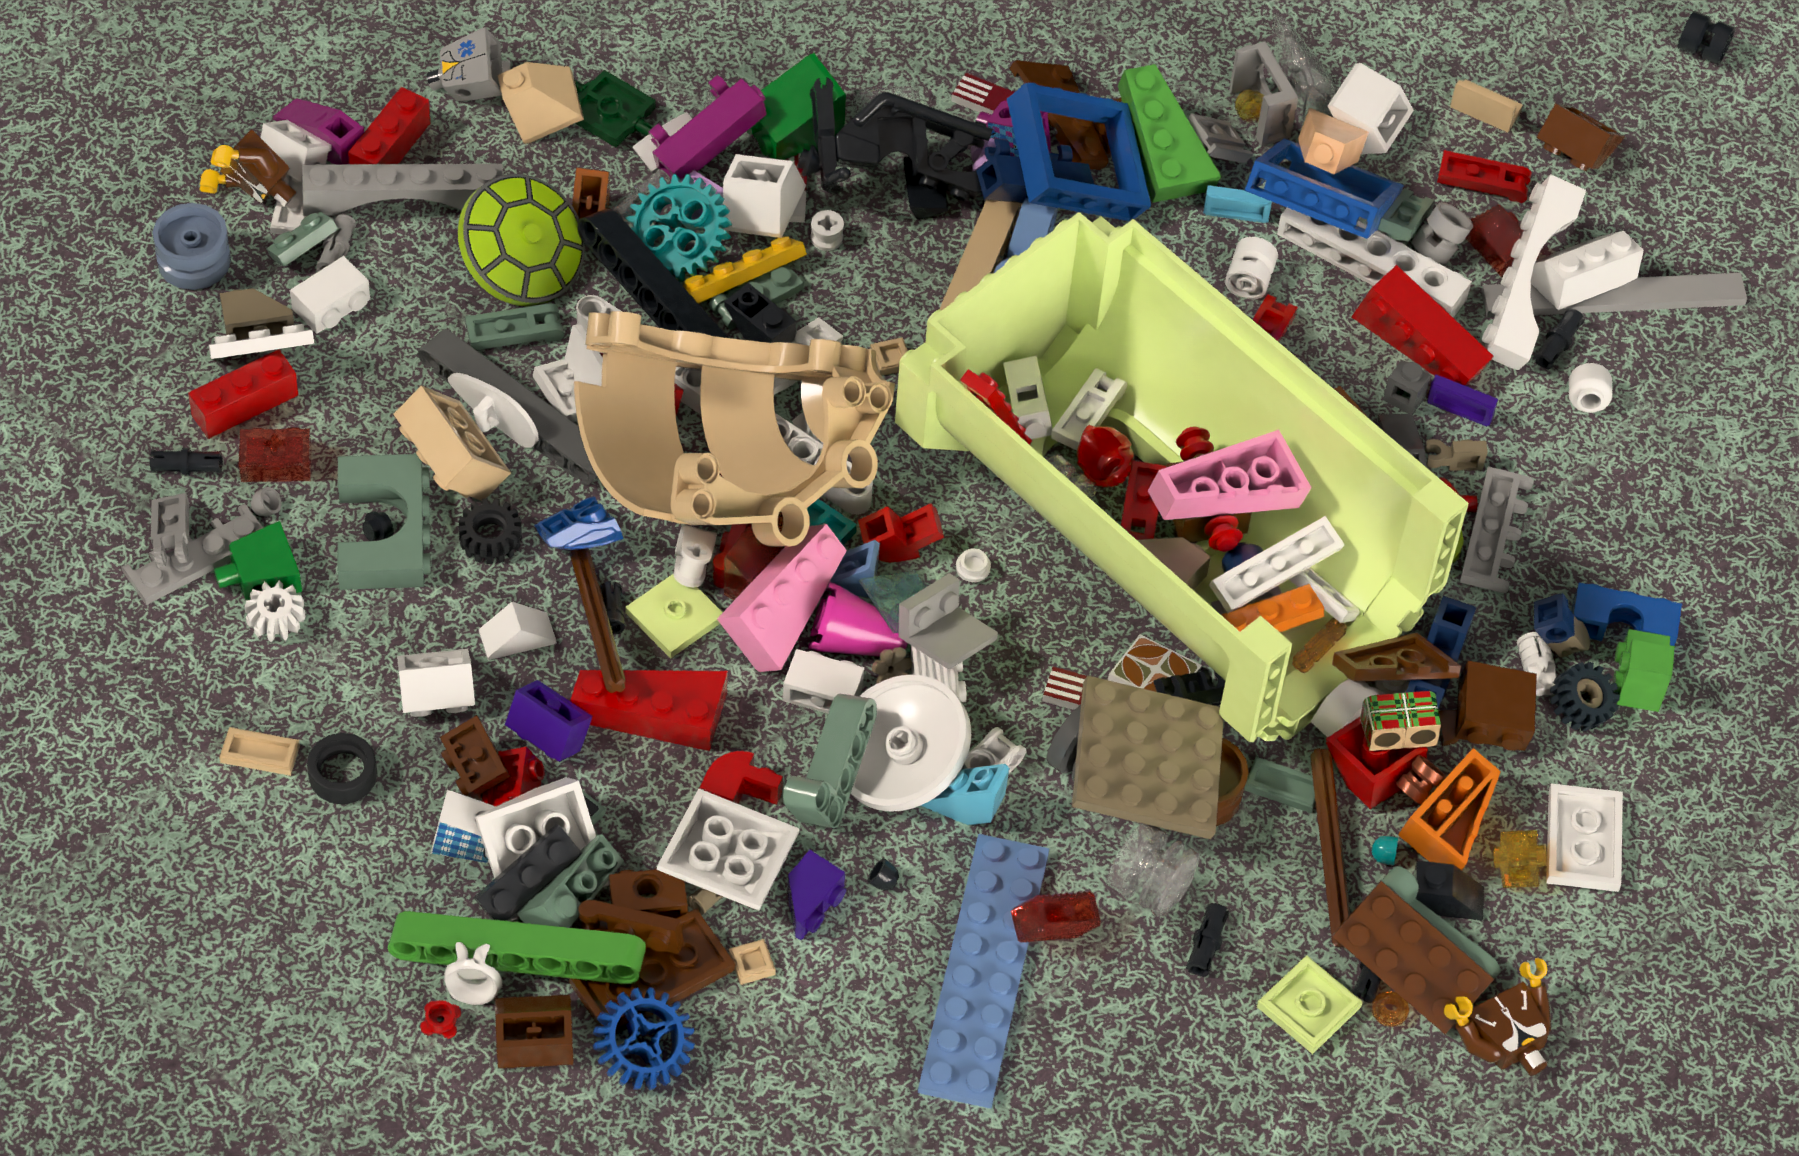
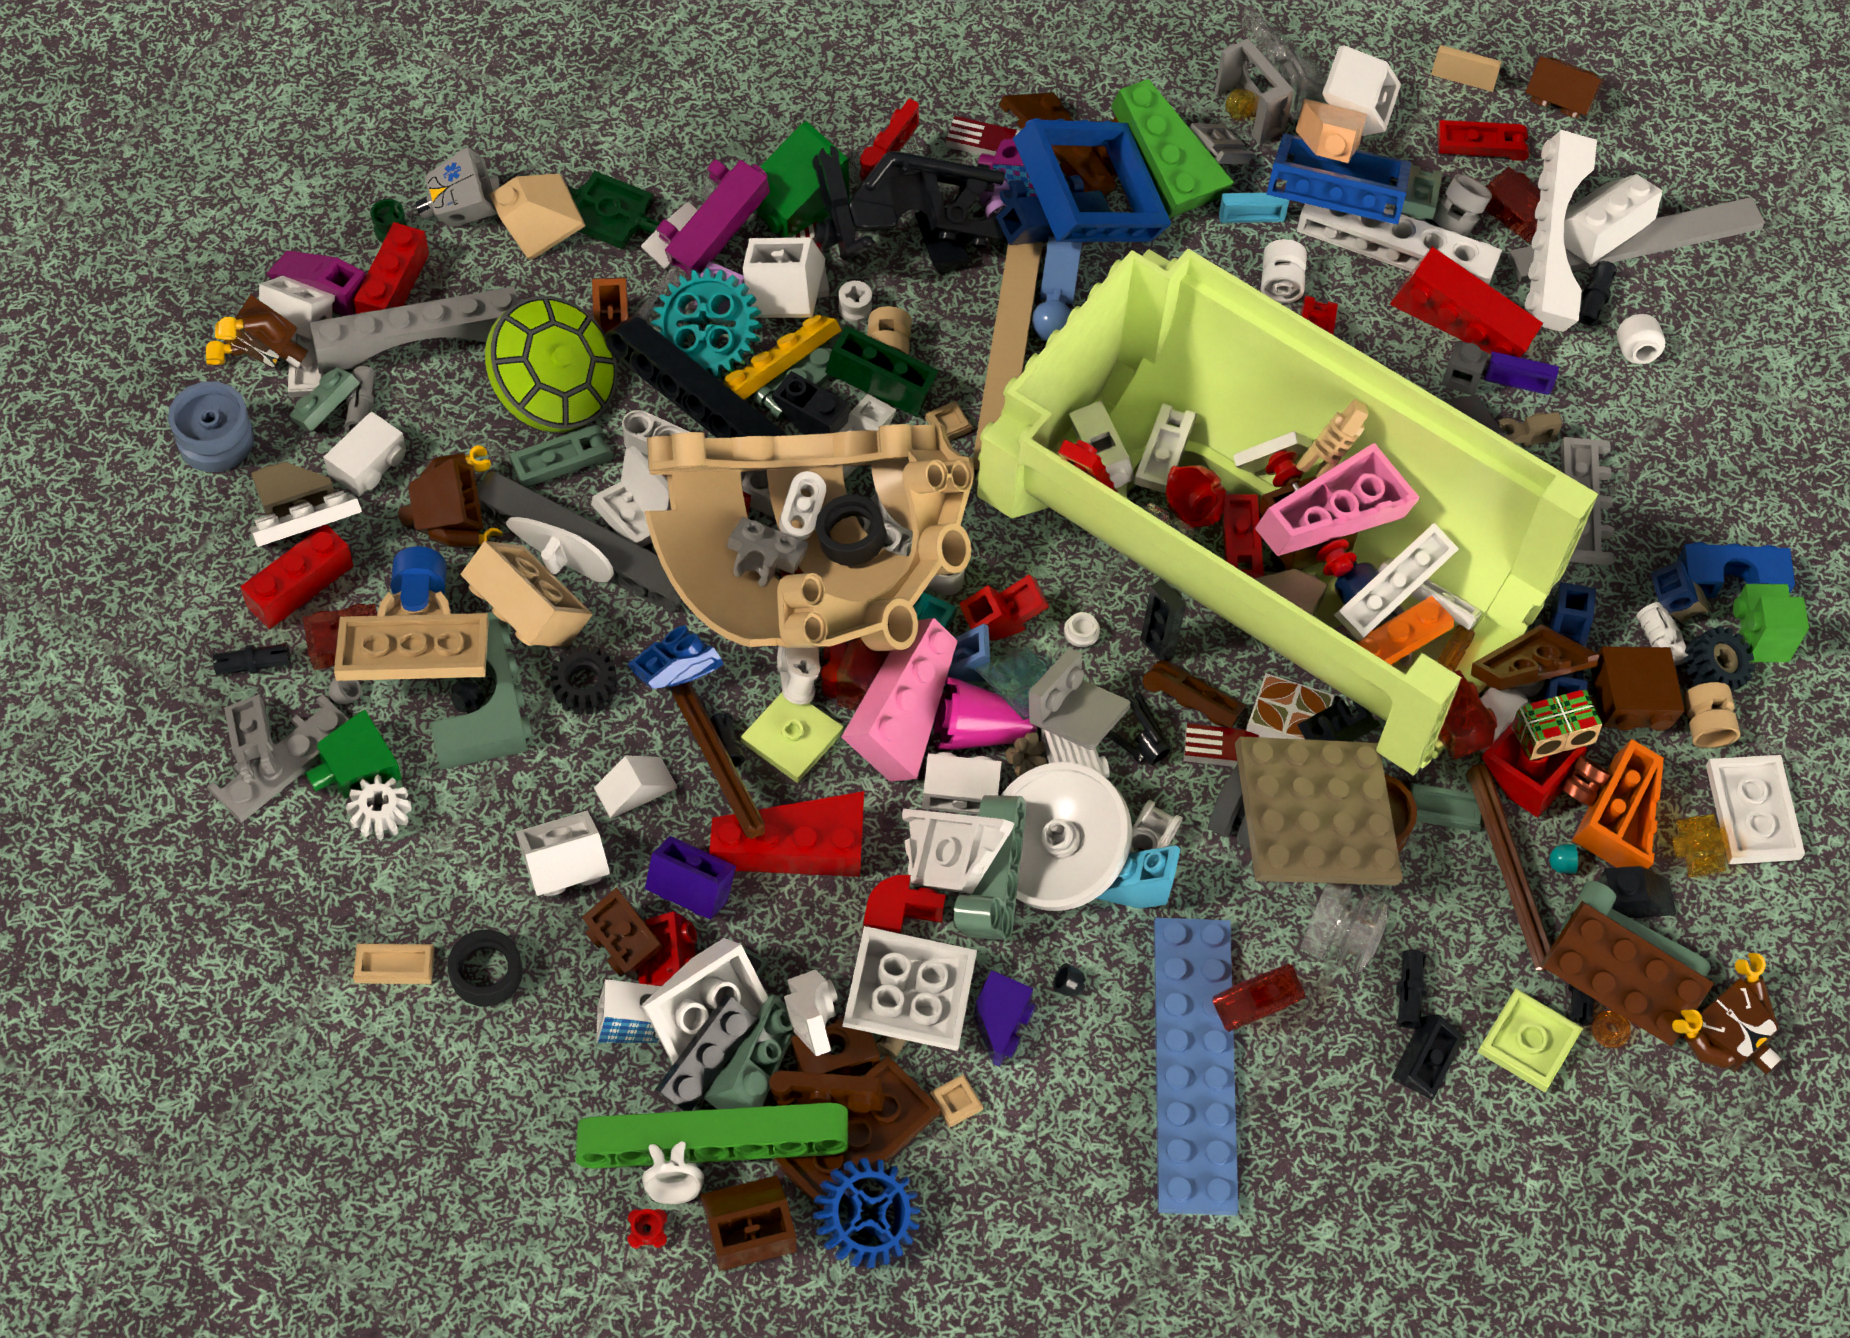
camera: 10 degrees left, 5 degrees up
(340, 455) = (413, 629): none -> tan plate
(394, 78) = (384, 214): none -> dark green wheel
(397, 348) = (448, 502): none -> reddish brown torso
(633, 851) = (810, 1009): none -> white slope
(680, 434) = (764, 550): none -> light grey plate
(725, 406) = (800, 507): none -> white plate
(762, 413) = (842, 508): none -> black tyre
(798, 735) = (952, 849): none -> white wing
(835, 297) = (881, 371): none -> dark green brick
(850, 269) = (891, 327): none -> tan wheel
(898, 81) = (901, 127): none -> red hinge
(1014, 676) = (1151, 741): none -> black plant
(1047, 566) = (1163, 620): none -> black plate
(1065, 640) = (1193, 693): none -> reddish brown plate
(1168, 431) = (1258, 457): none -> white tile
(1209, 1002) = (1428, 1056): none -> black slope
(1243, 418) = (1335, 438): none -> tan hinge
(1310, 697) = (1468, 722): none -> clear red brick
(1564, 744) = (1711, 715): none -> tan wheel

